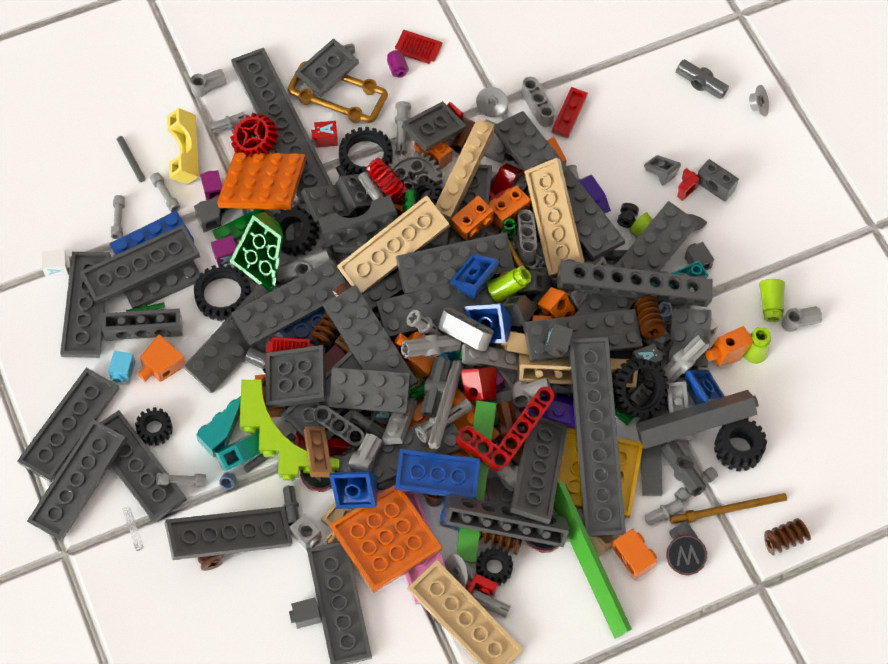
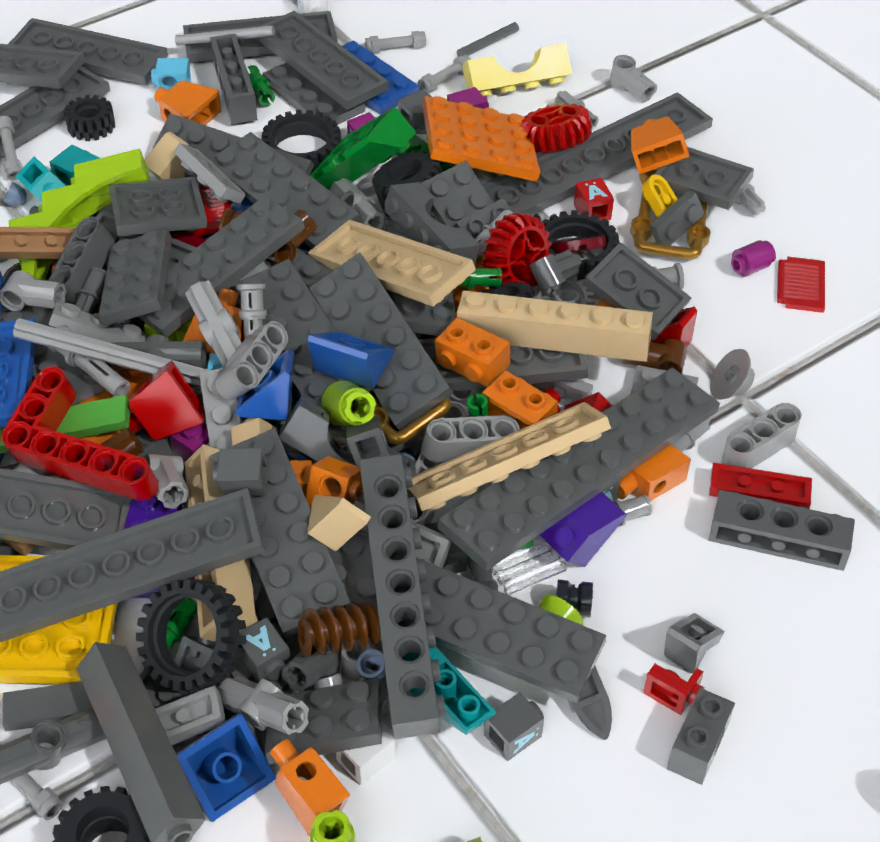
camera: 80 degrees right, 15 degrees down
(95, 323) = (244, 33): none -> light grey bar
(235, 370) = (163, 161): none -> tan slope
(269, 343) = (209, 174): none -> light grey plate
(297, 82) = (657, 144): none -> orange torso
(339, 96) = (658, 194): none -> yellow plate
(364, 98) = (677, 219): none -> dark grey plate
(367, 149) = (578, 243): none -> dark red tile
(401, 165) = (555, 269): none -> dark grey piece
(589, 304) = (335, 520): none -> tan slope
(609, 88) = (782, 530): none -> dark grey brick

